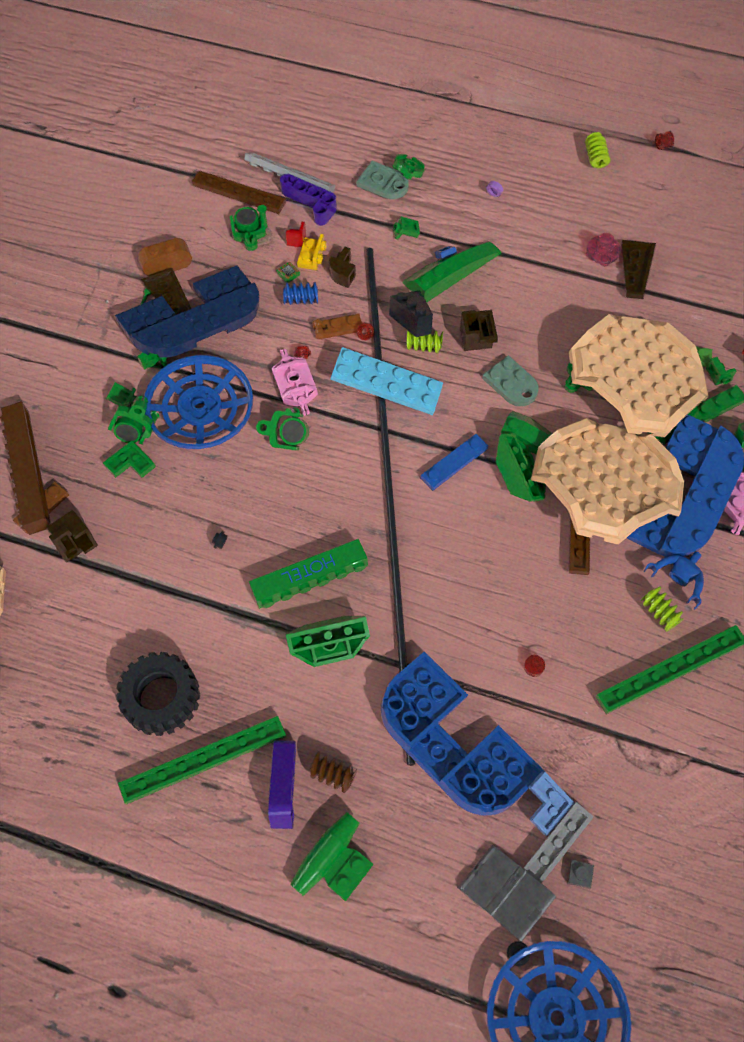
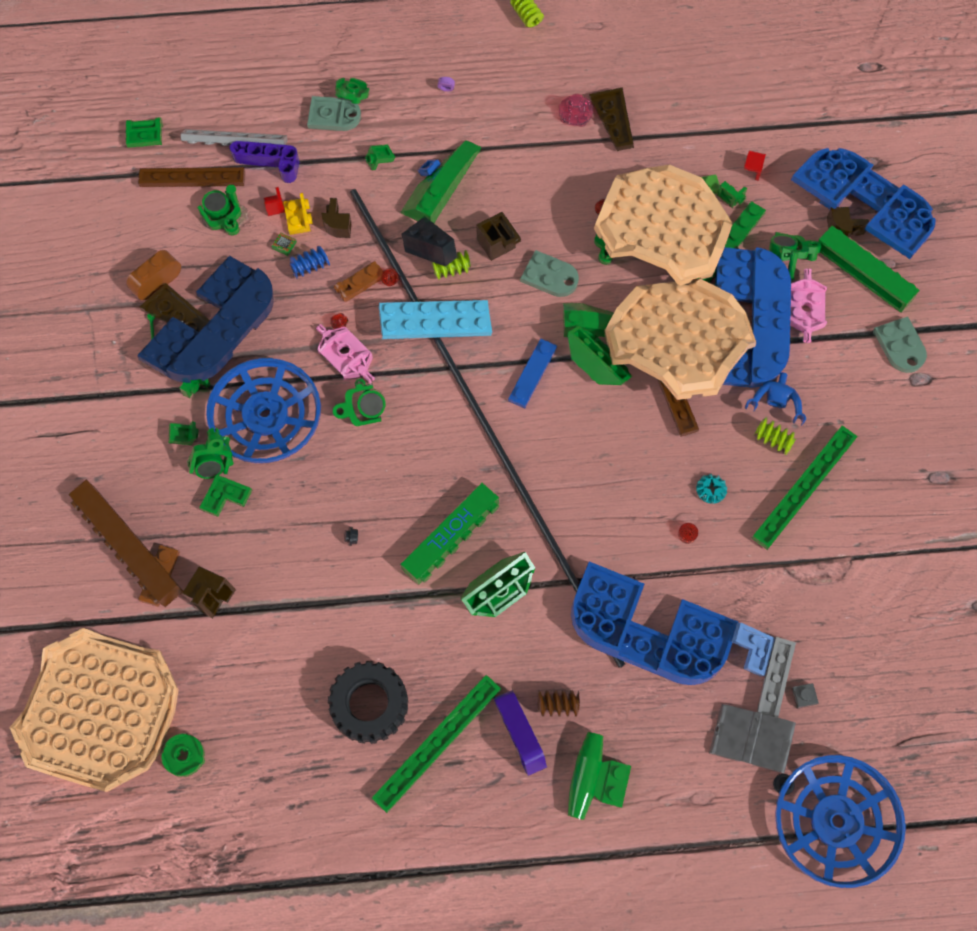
camera: 25 degrees left, 5 degrees up
(217, 144) = (144, 136): none -> green plate
(569, 637) = (706, 494): none -> teal gear

